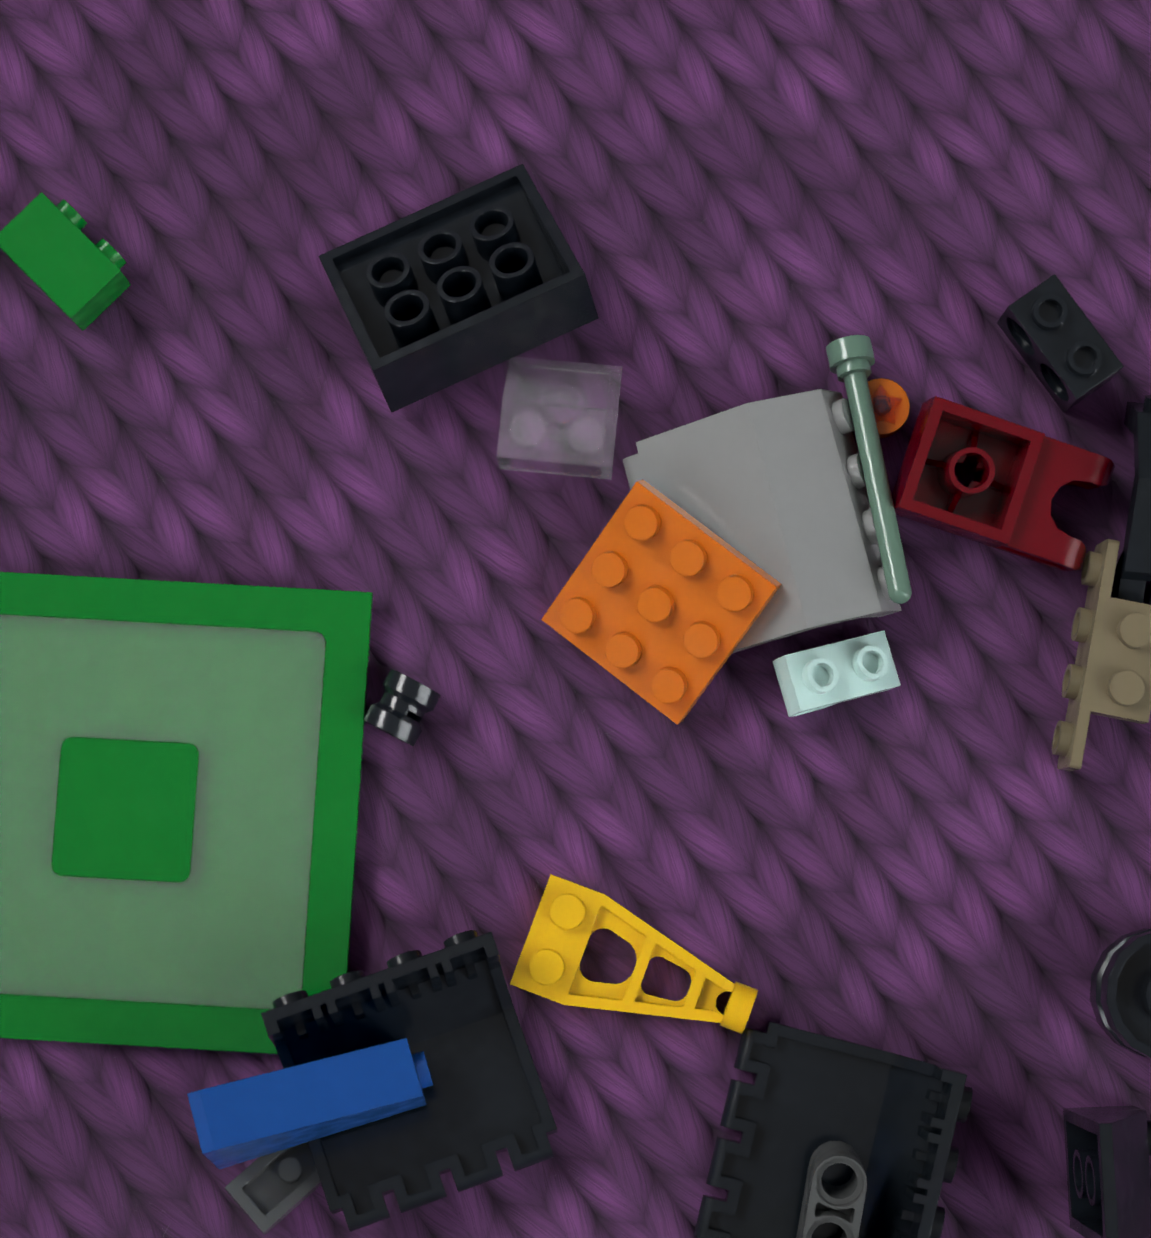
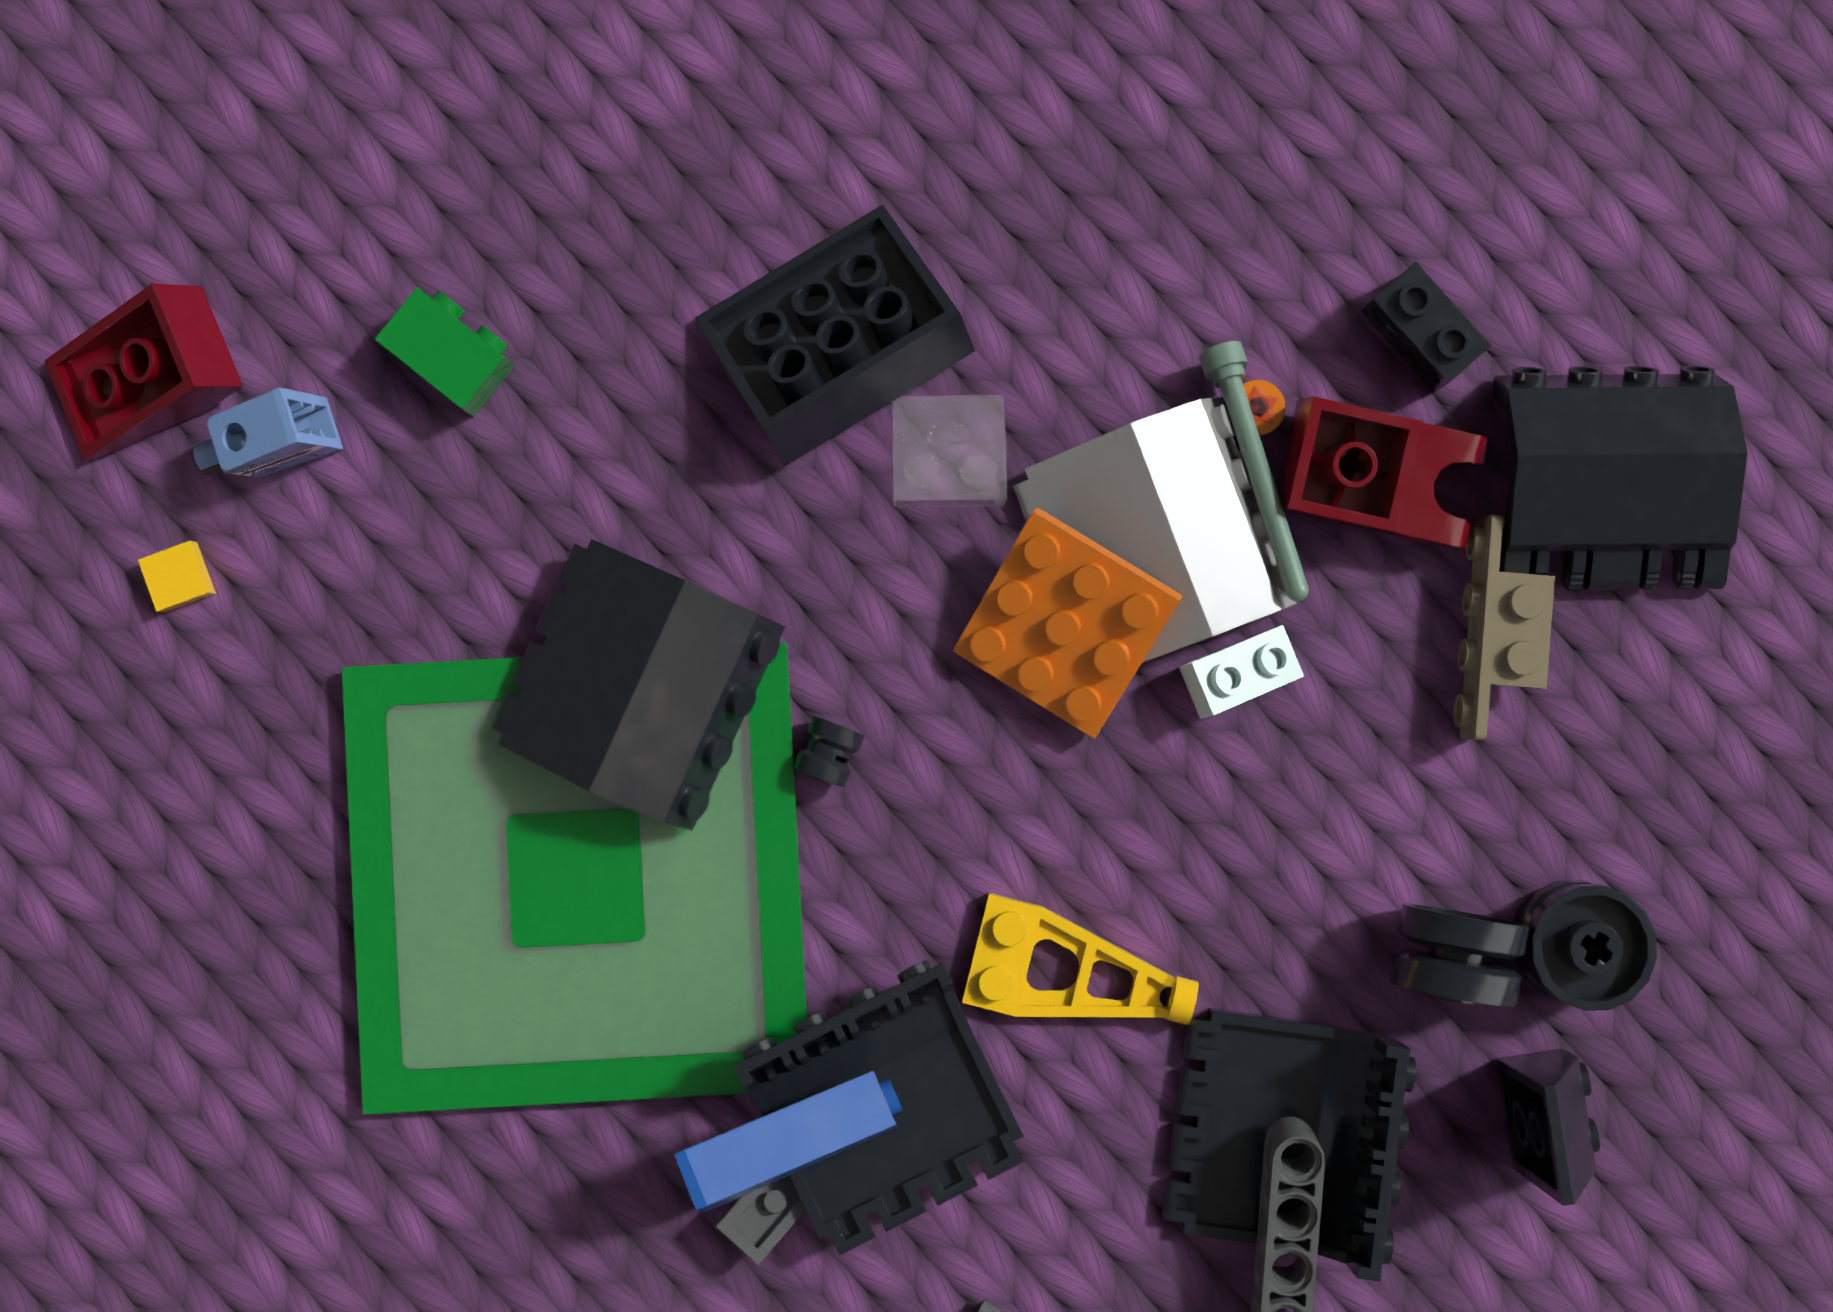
camera: 10 degrees left, 5 degrees up
(214, 615) = (637, 684): none -> black hinge
(1031, 988) = (1458, 960): none -> black wheel

